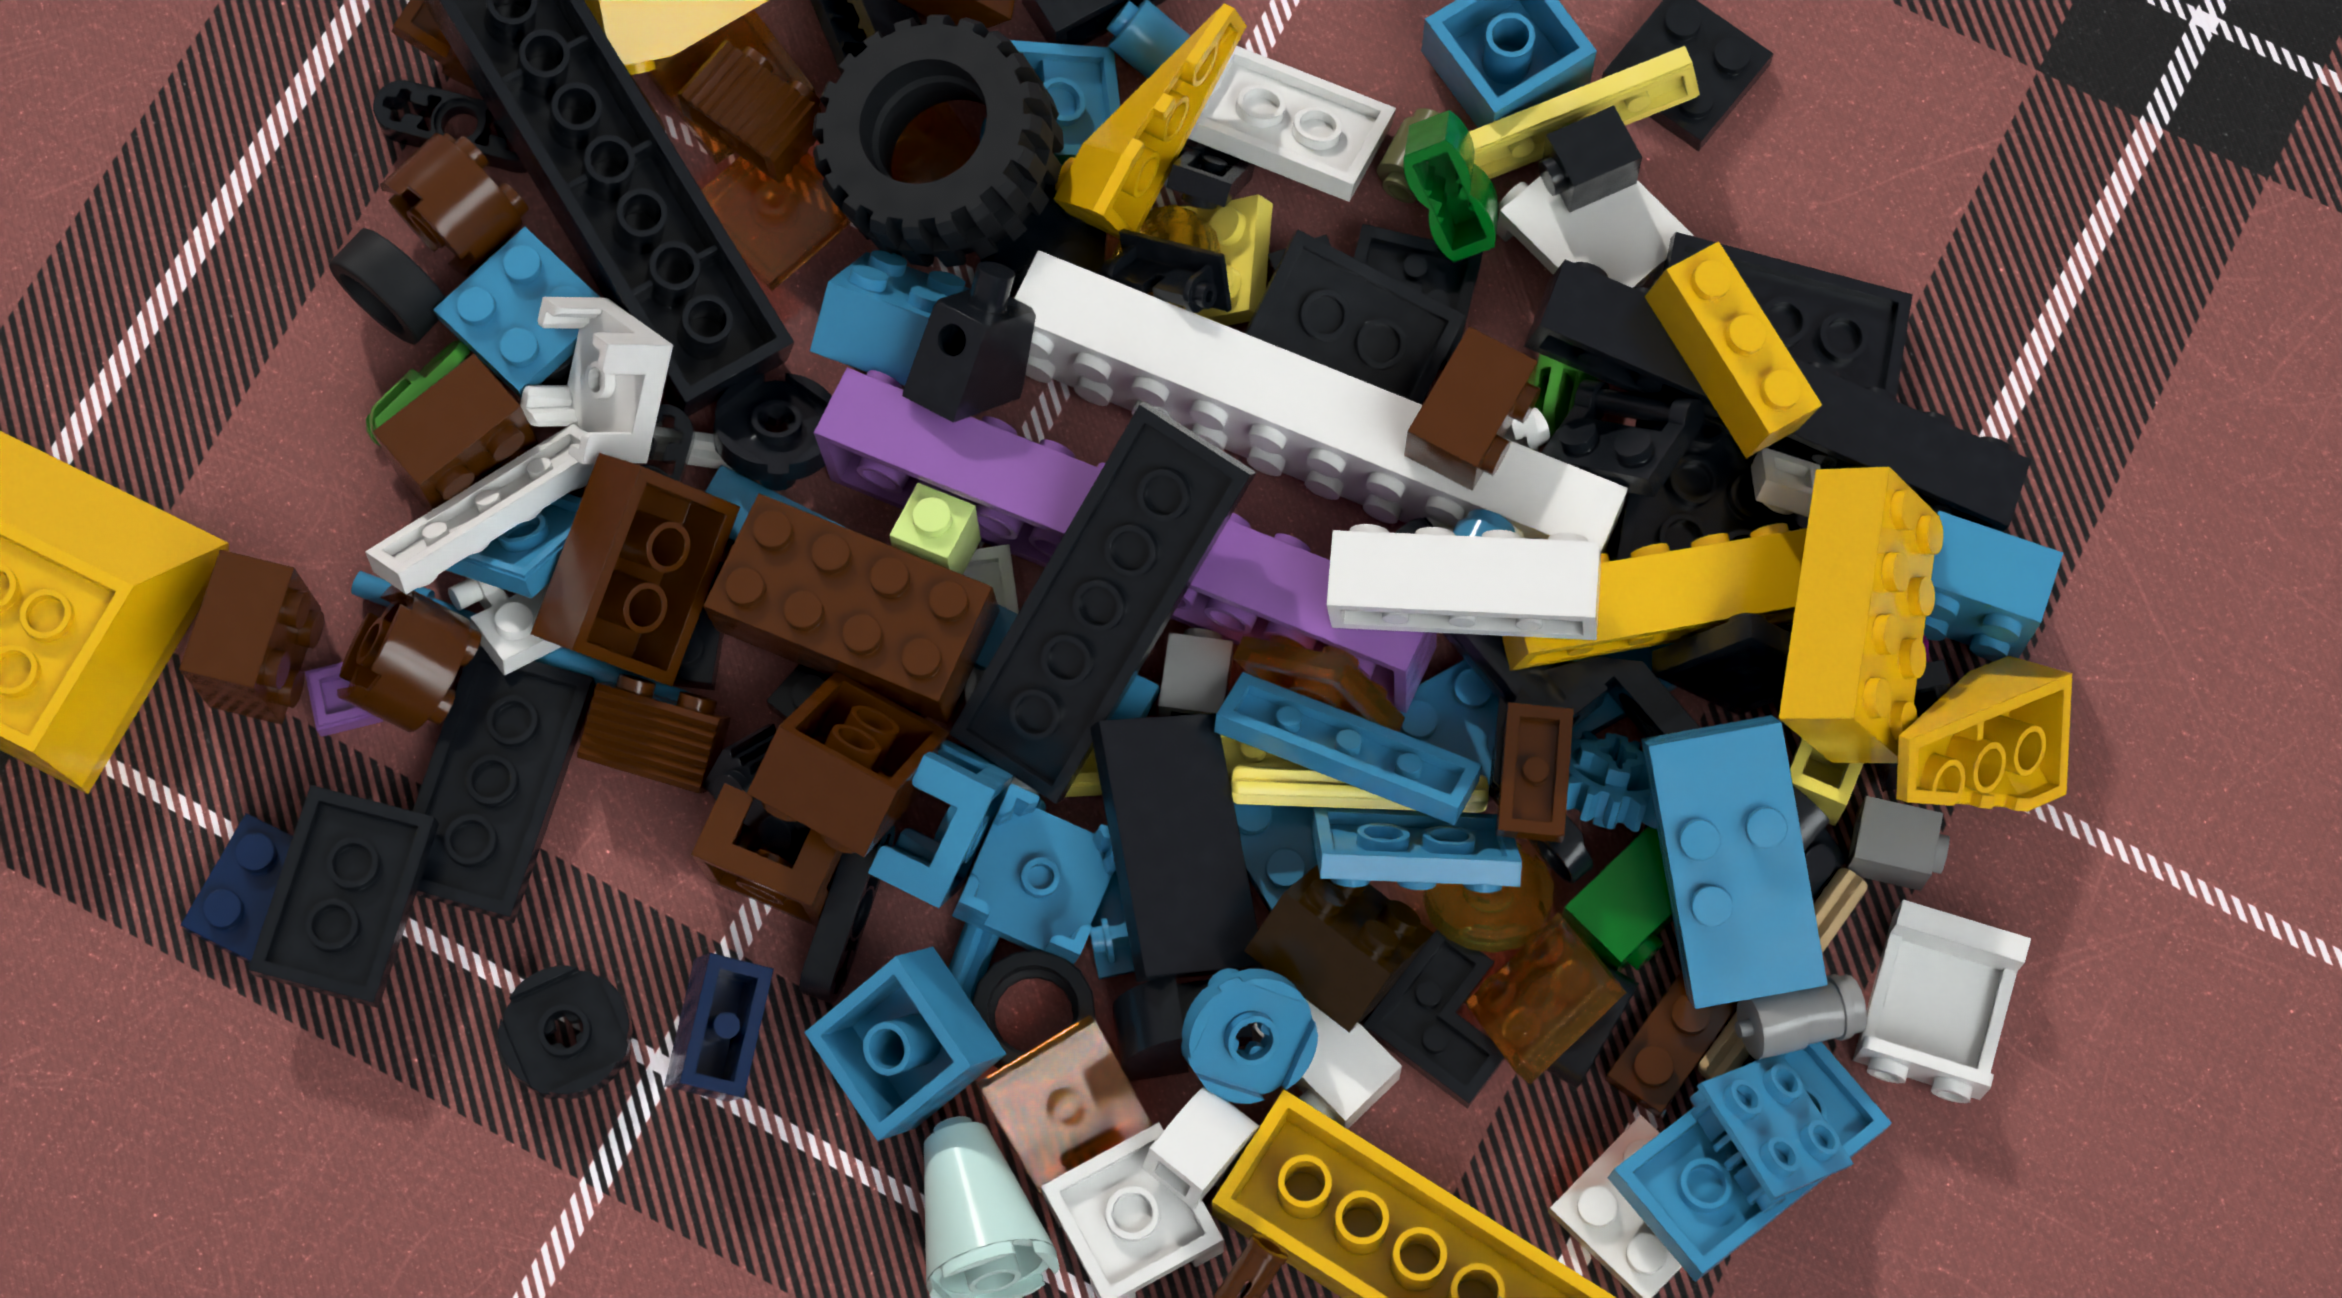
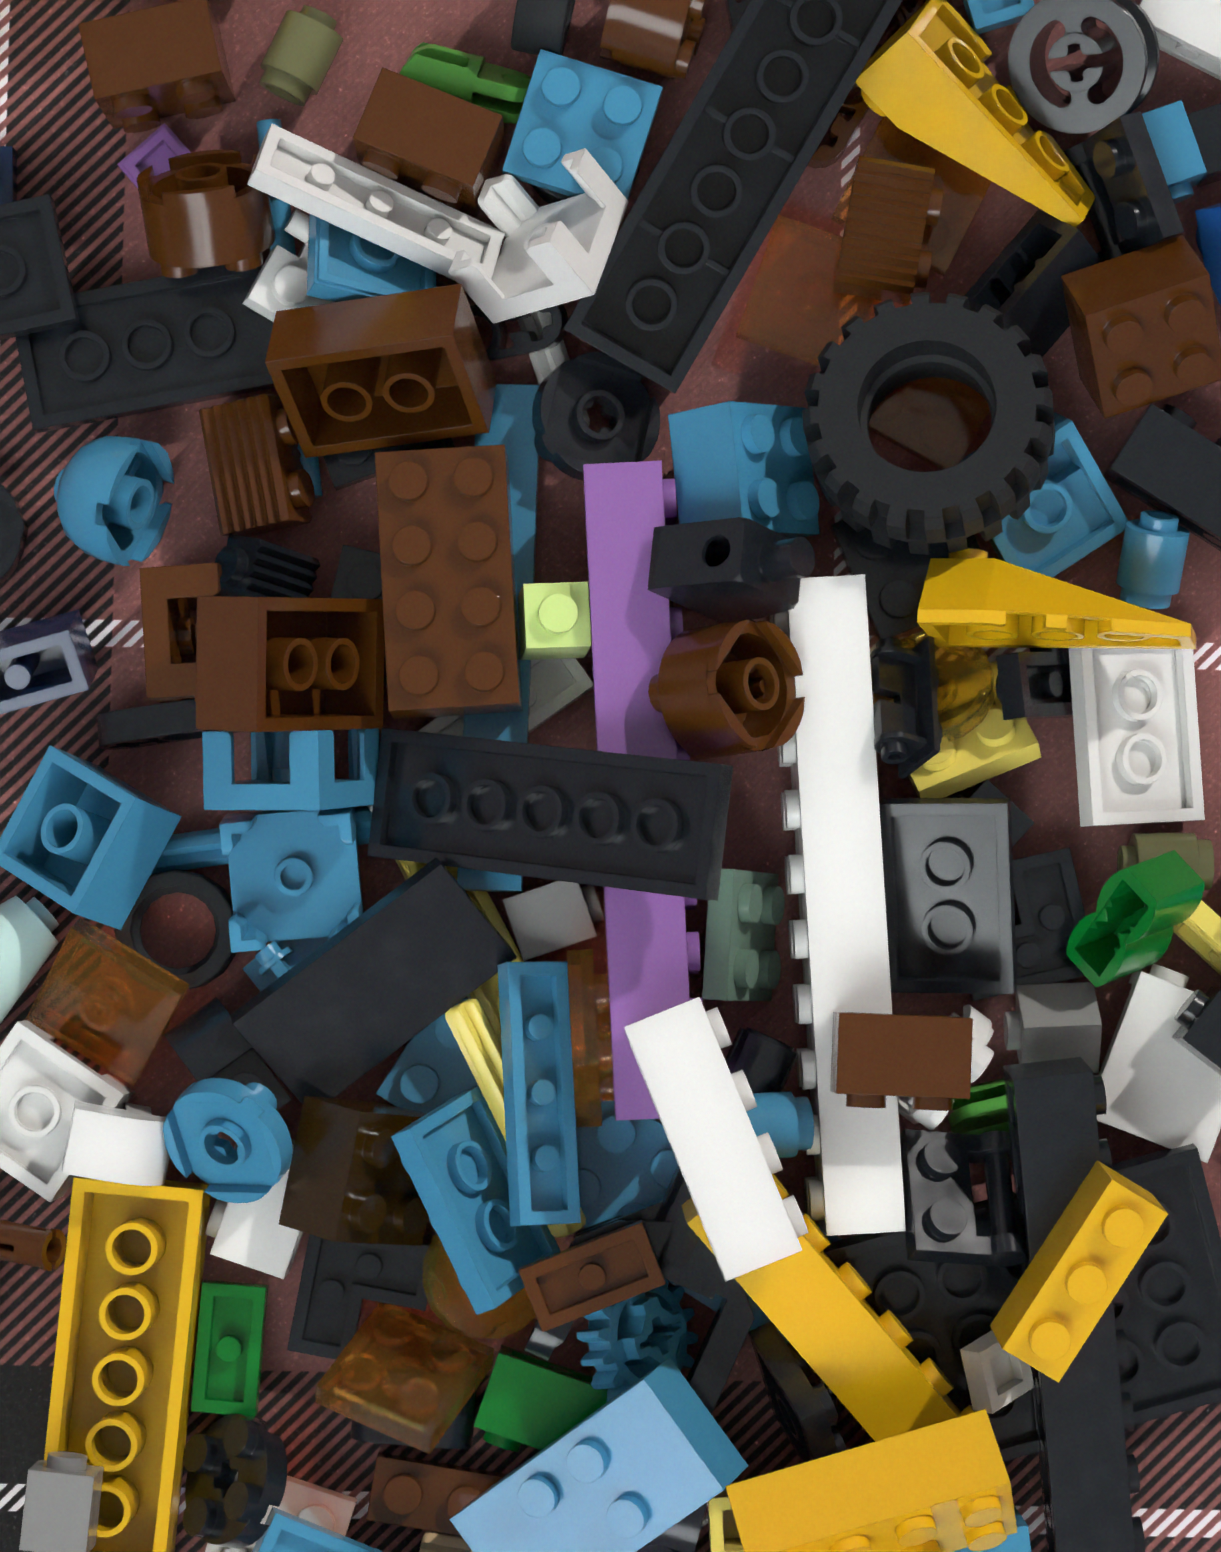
camera: 65 degrees right, 15 degrees up
(315, 524) = (300, 55): none -> olive brick
(609, 875) = (113, 497): none -> dark azure cylinder
(1074, 397) = (729, 689): none -> reddish brown brick
(1279, 506) = (741, 937): none -> sand green plate
(1444, 1154) = (229, 1348): none -> green plate
(1507, 300) = (1054, 1023): none -> light grey brick
(1578, 1170) = (228, 1510): none -> black plate

